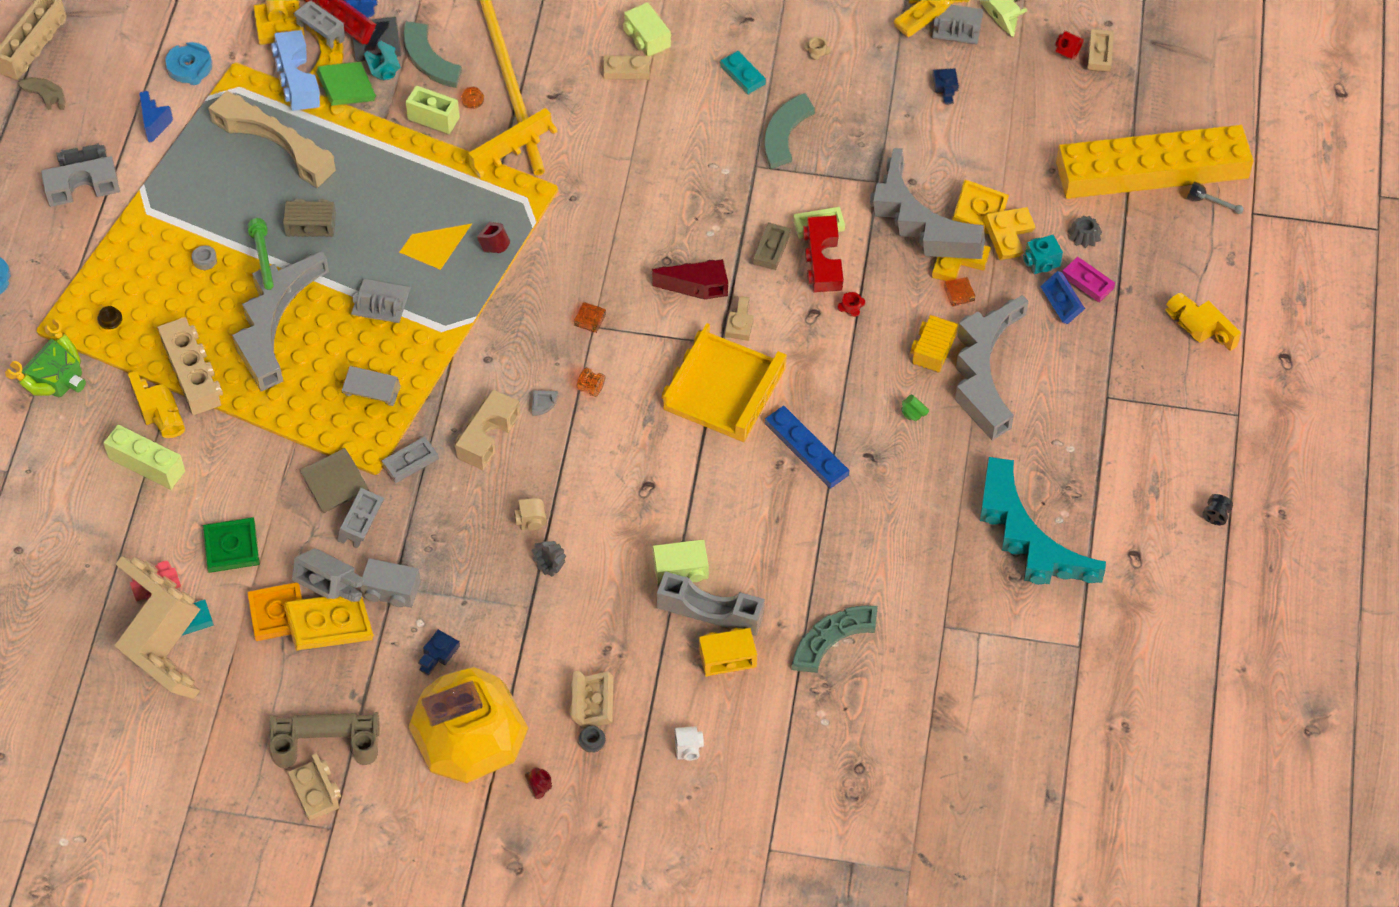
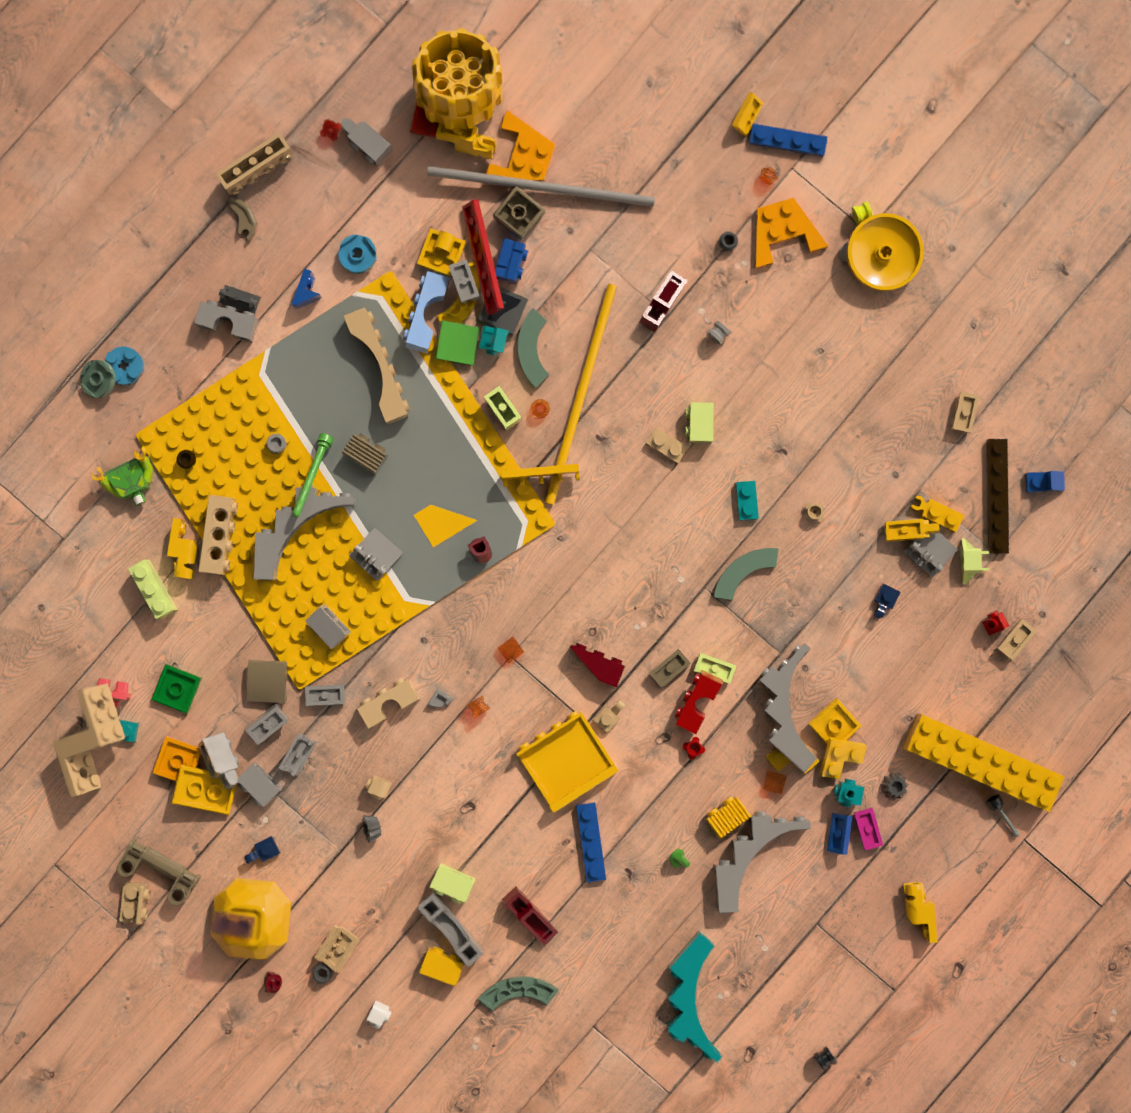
camera: 30 degrees right, 30 degrees up
(416, 532) = (297, 754): none -> light grey hinge
(790, 549) = (529, 915): none -> dark red slope

